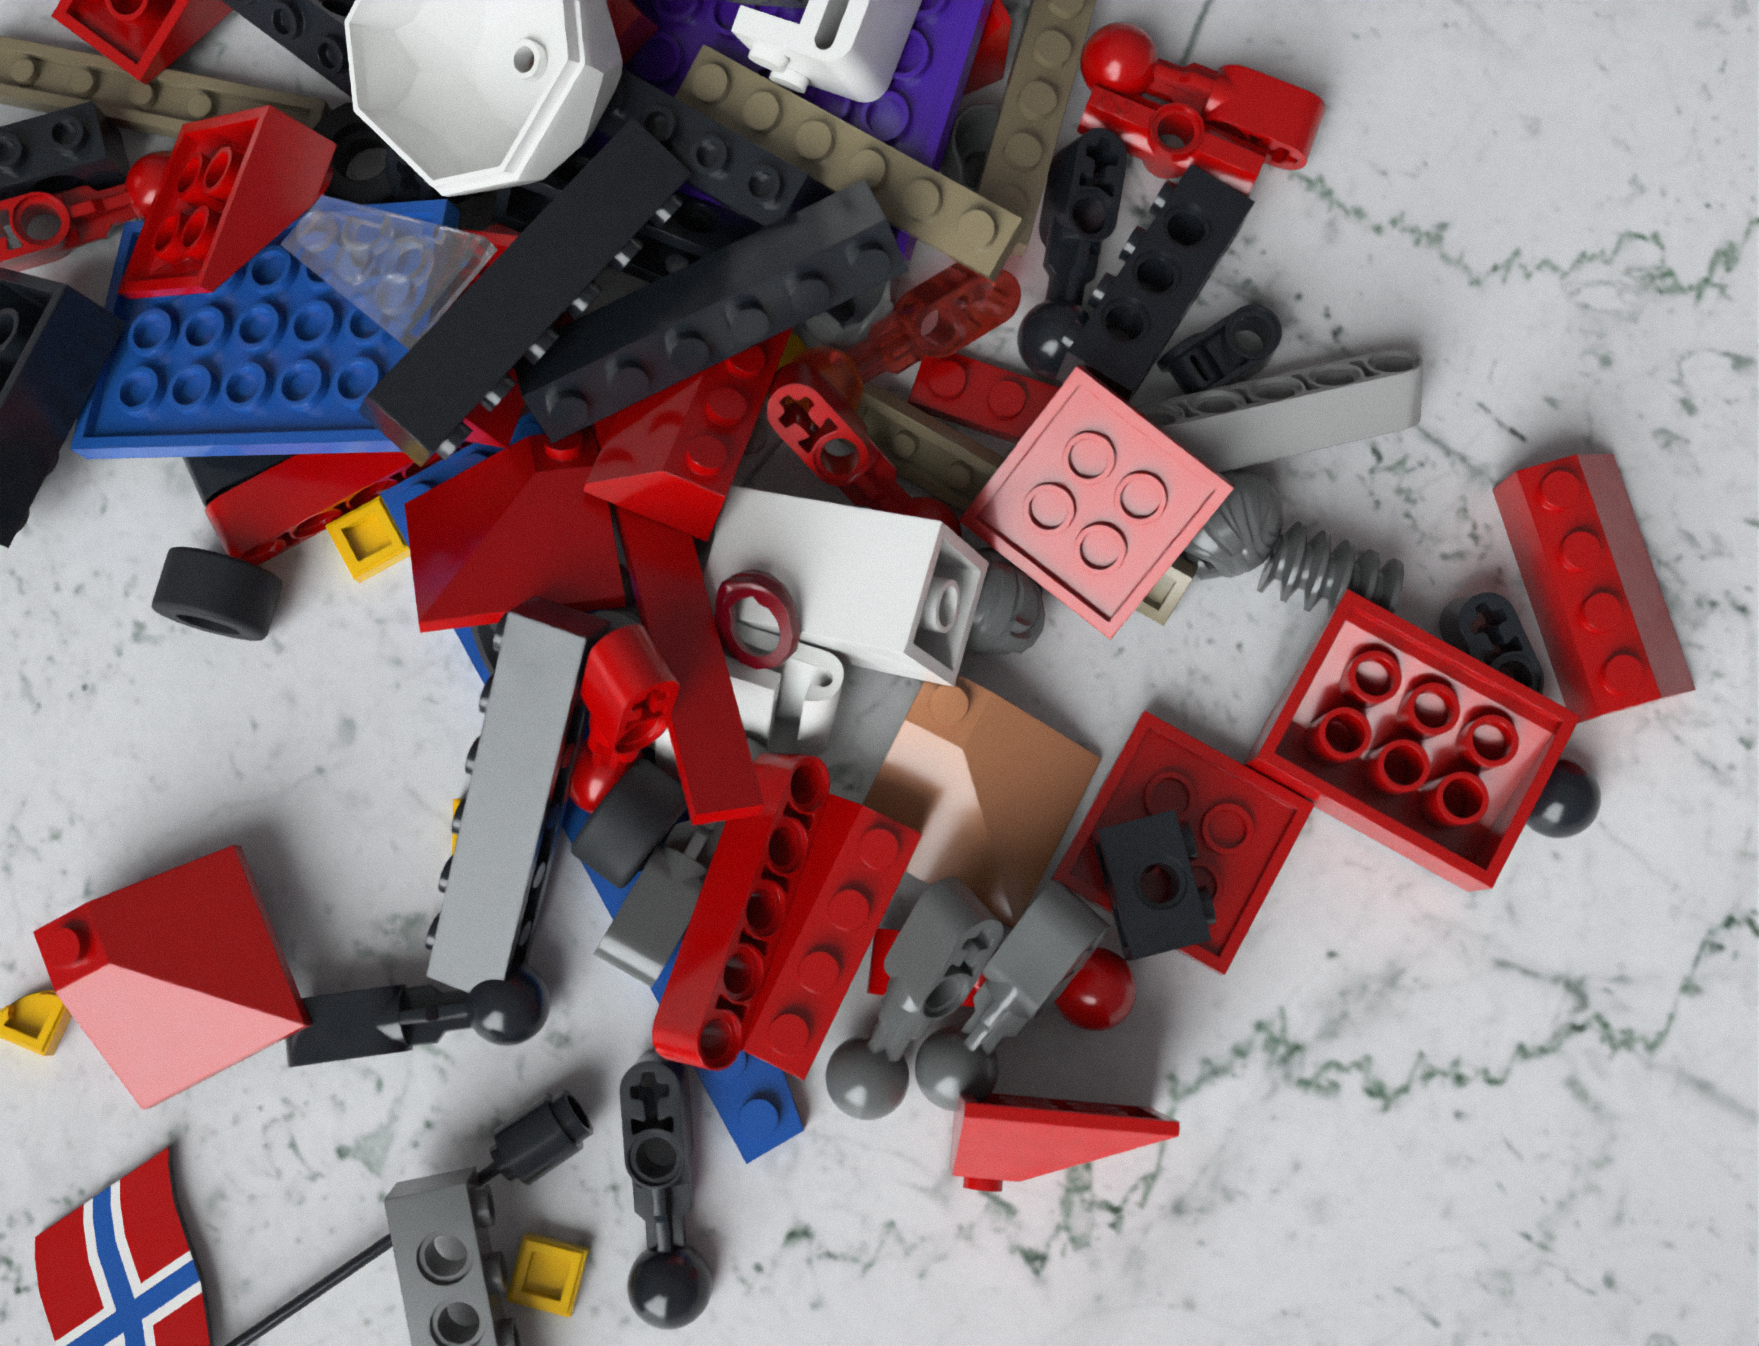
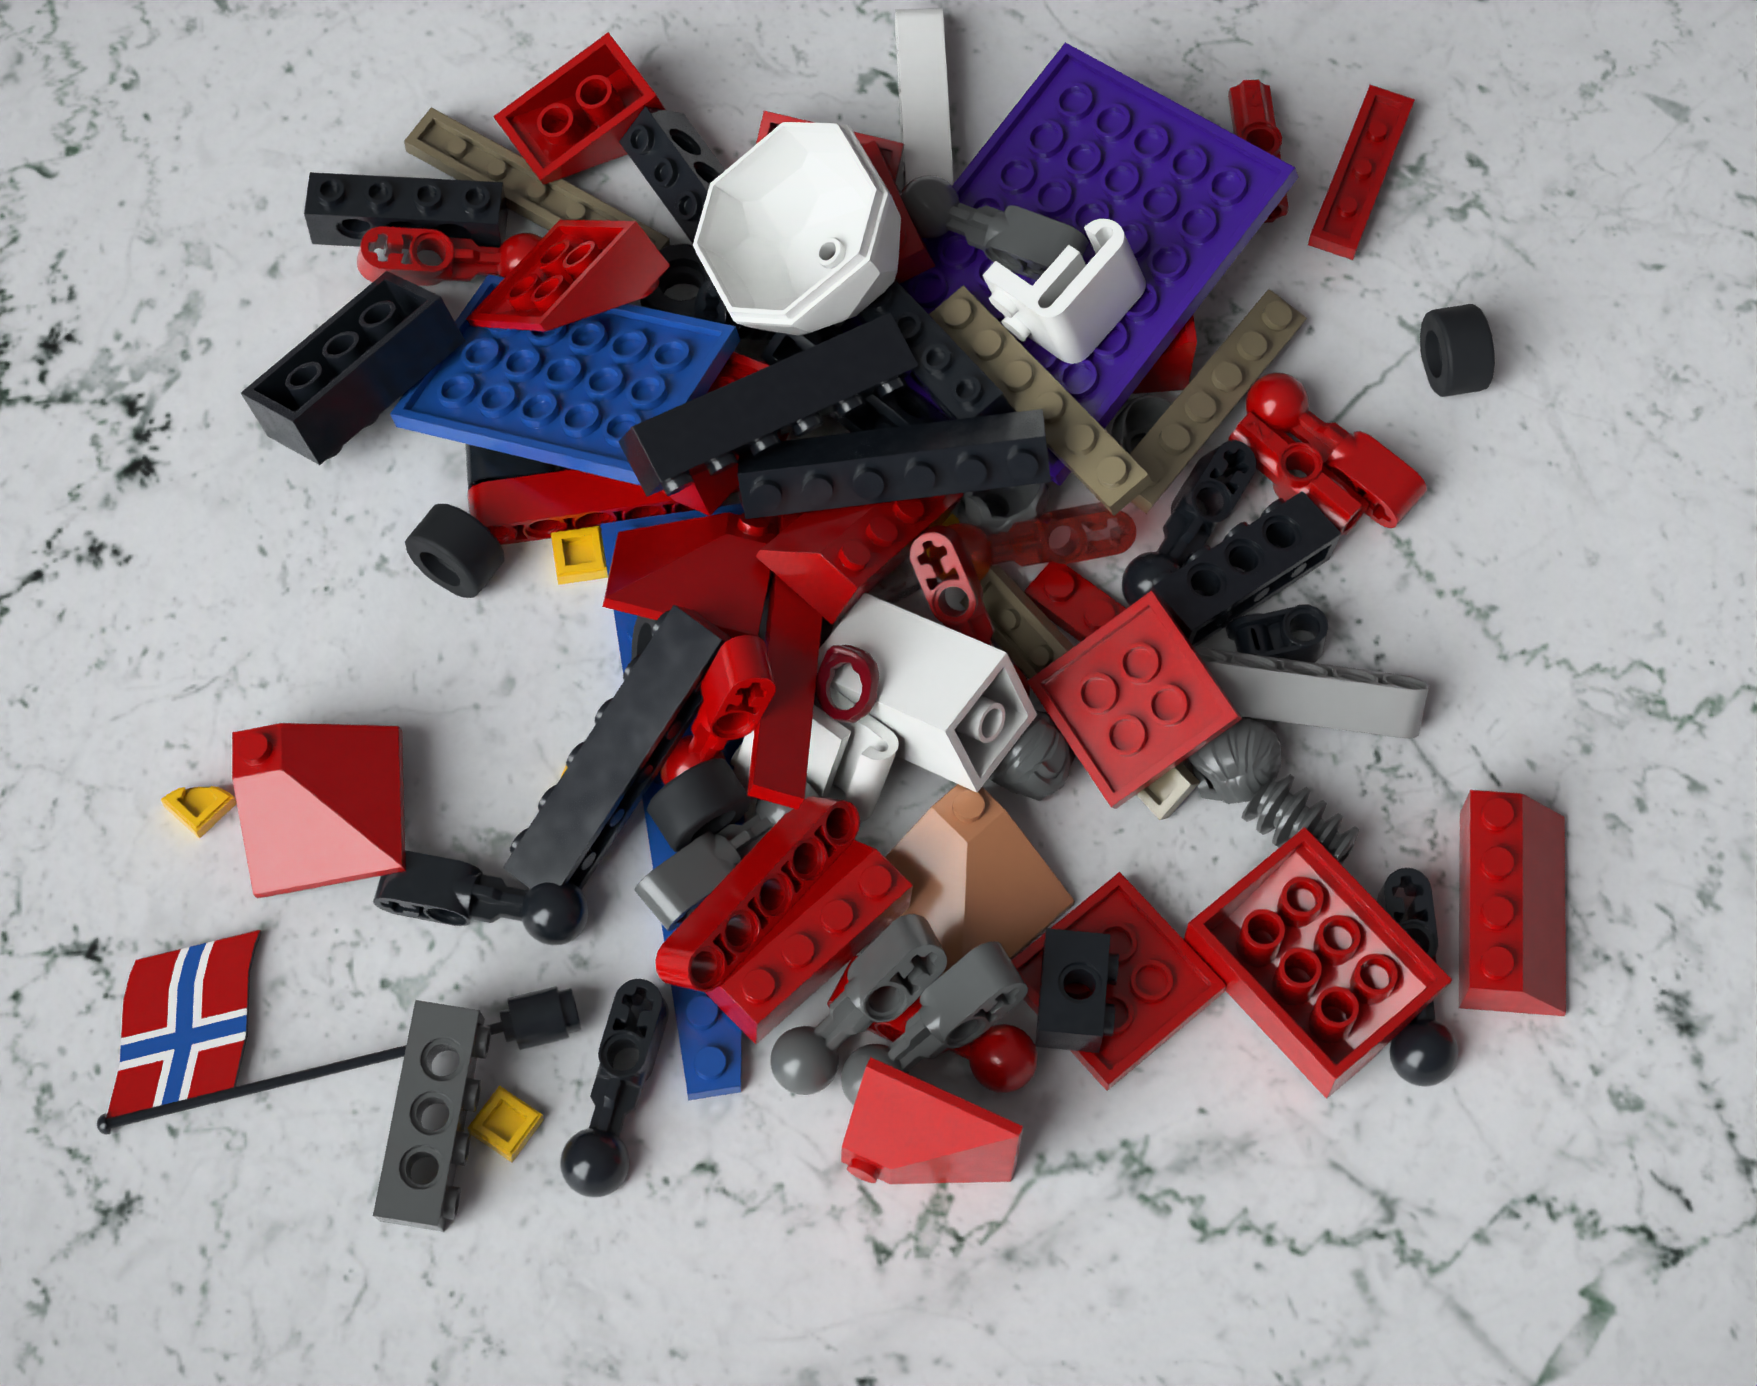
camera: 20 degrees right, 15 degrees down
(388, 263) = (675, 354): clear wing -> none

